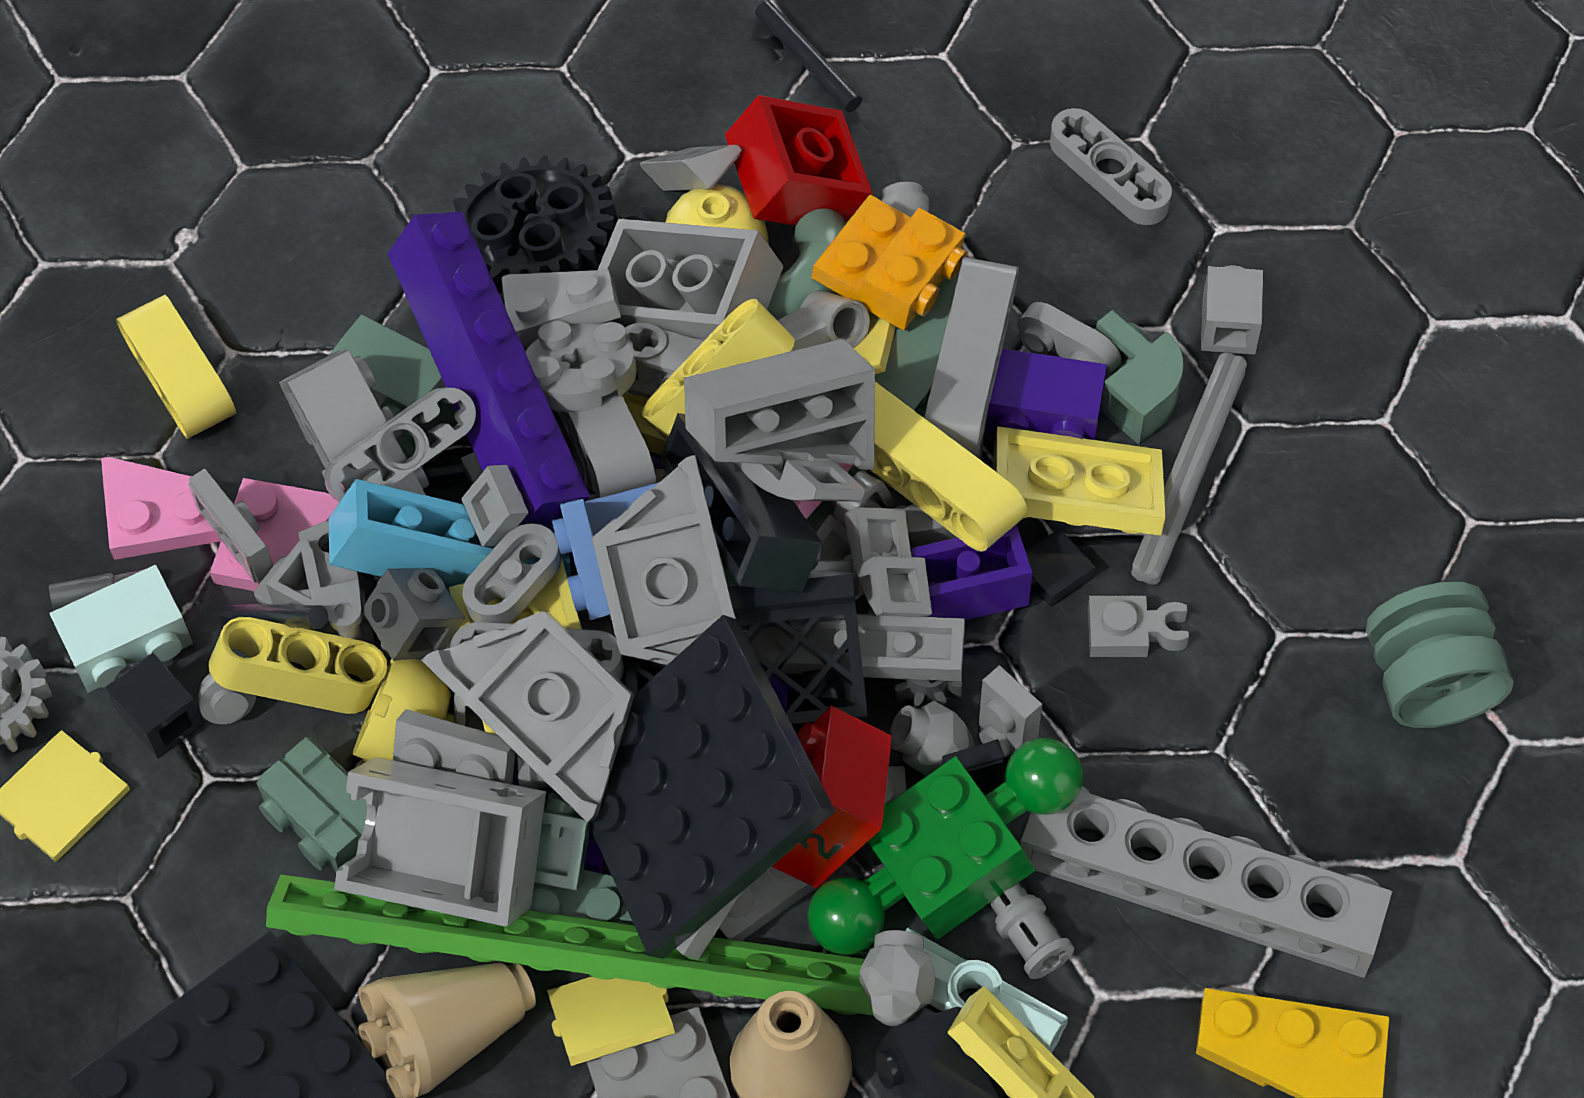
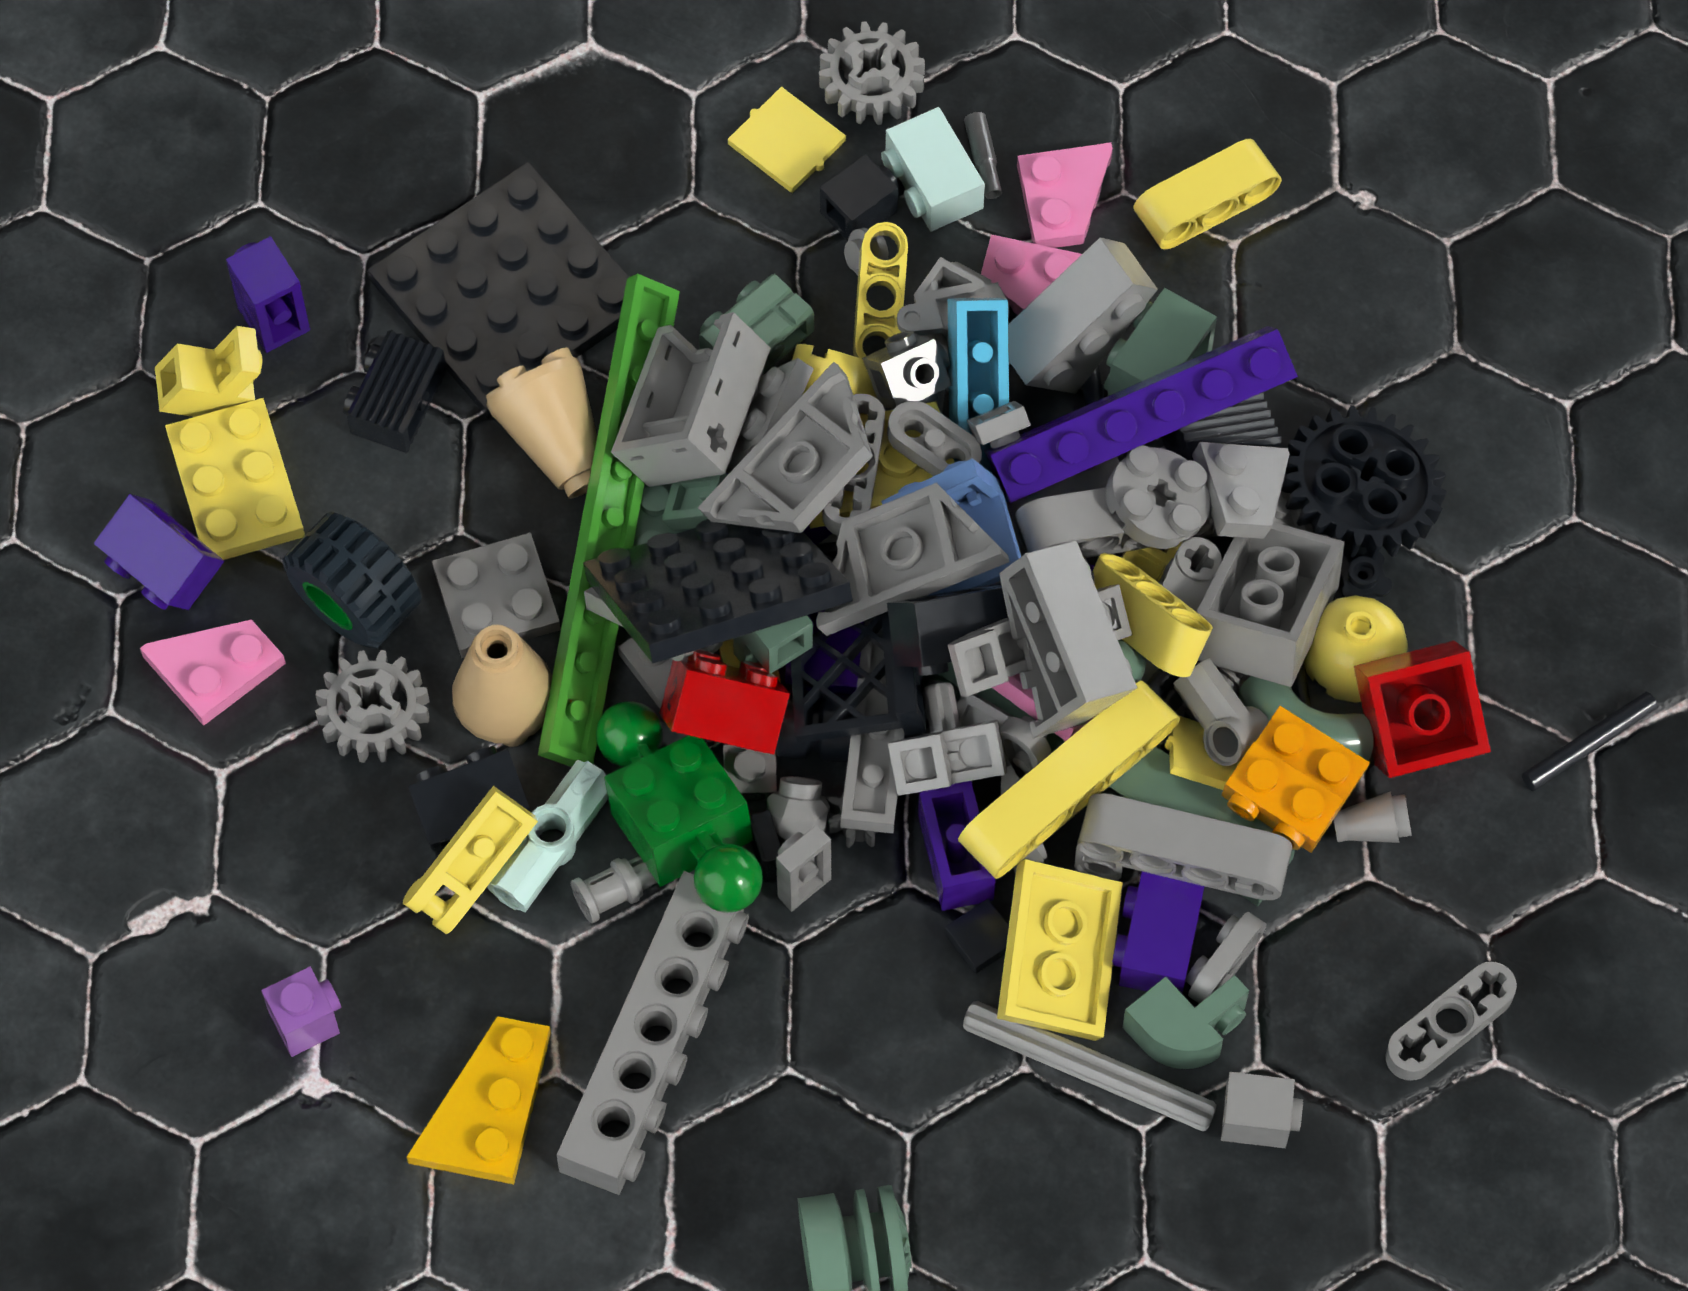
camera: 90 degrees right, 5 degrees up
(232, 524) = (1019, 238): light grey plate -> none
(291, 615) = (910, 283): black bar -> none
(427, 410) = (1080, 349): light grey beam -> none
(608, 1016) = (546, 549): light yellow piece -> none
(691, 167) = (1424, 614): light grey slope -> none
(897, 976) = (552, 756): light grey rock -> none
(1125, 627) = (917, 994): light grey plate -> none

